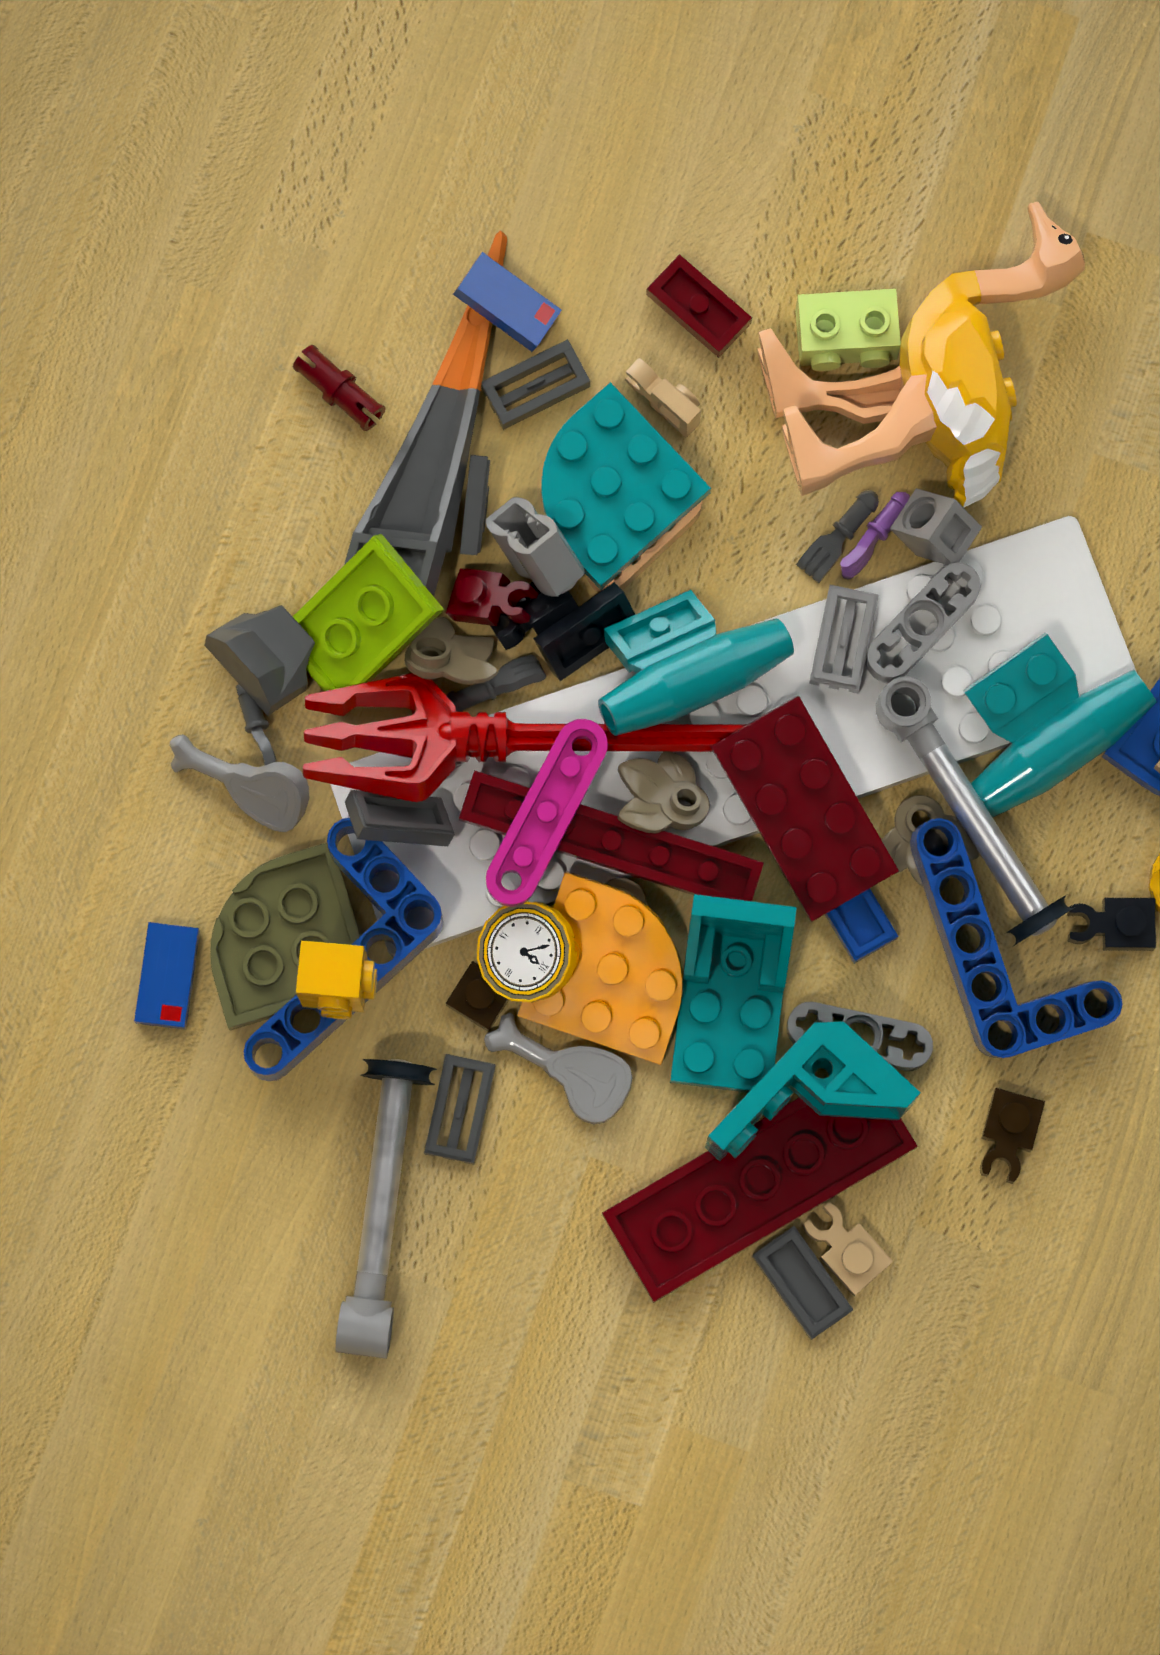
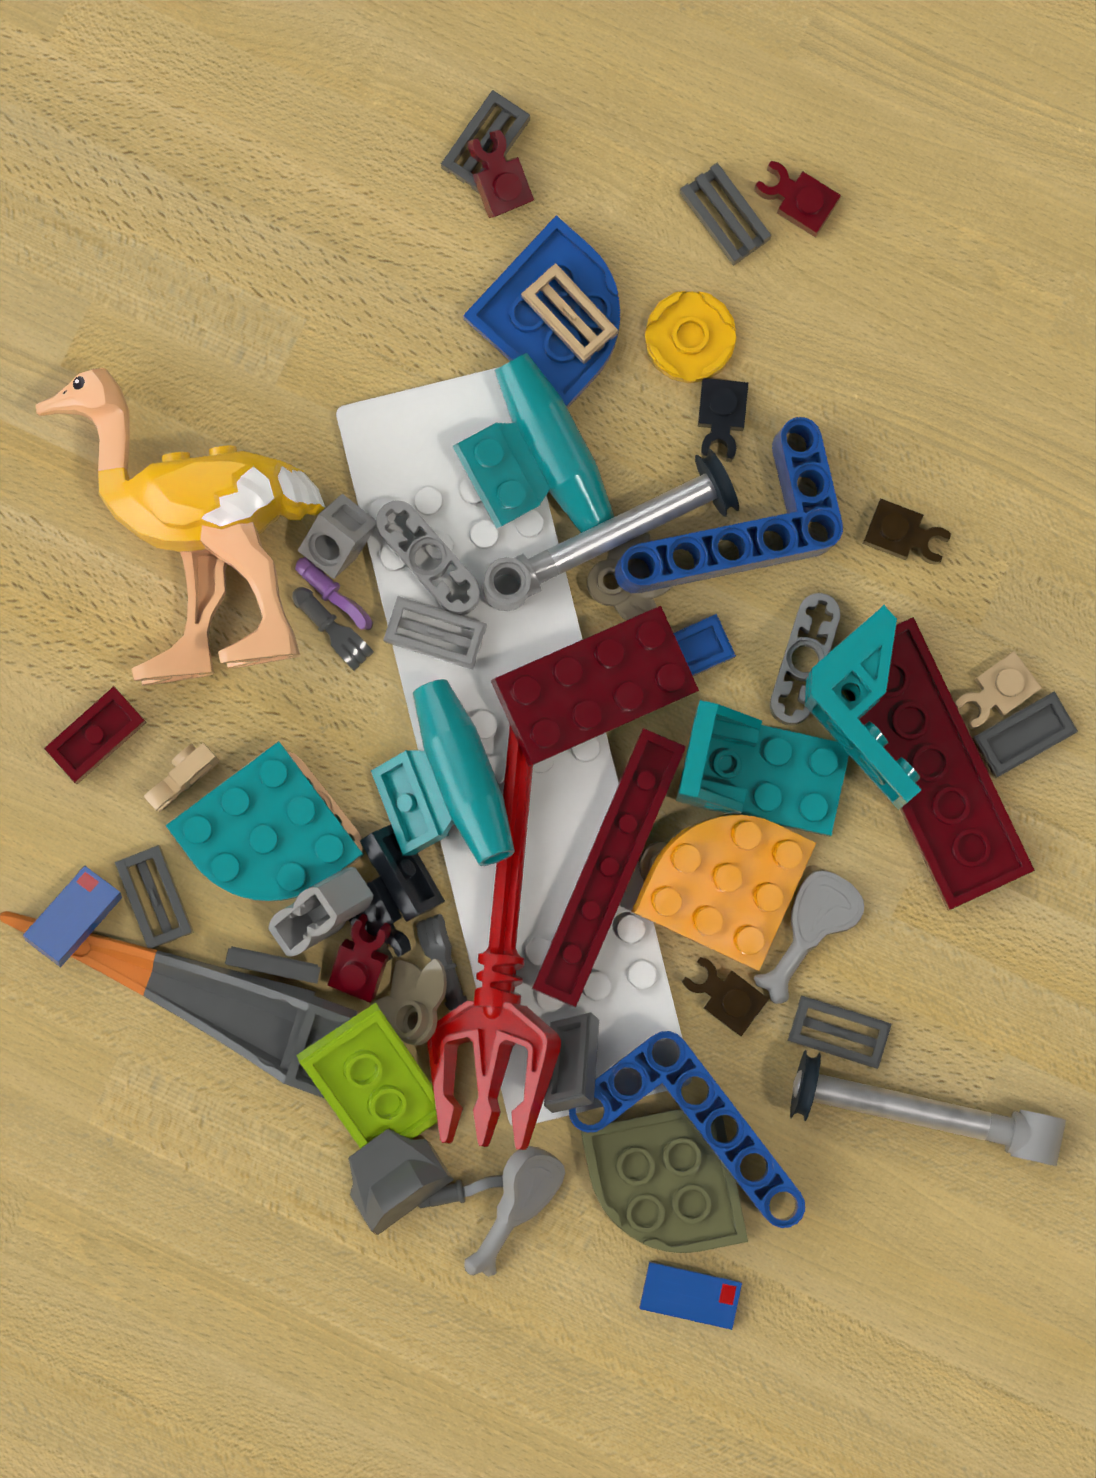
camera: 80 degrees left, 5 degrees up
(335, 978) = (731, 1134): yellow brick -> none
(339, 387) = (138, 1085): dark red pin -> none
(526, 952) = (706, 955): tile -> none
(546, 812) = (582, 923): dark pink plate -> none
(657, 793) = (565, 820): dark tan plate -> none
(848, 328) = (134, 597): yellowish green brick -> none

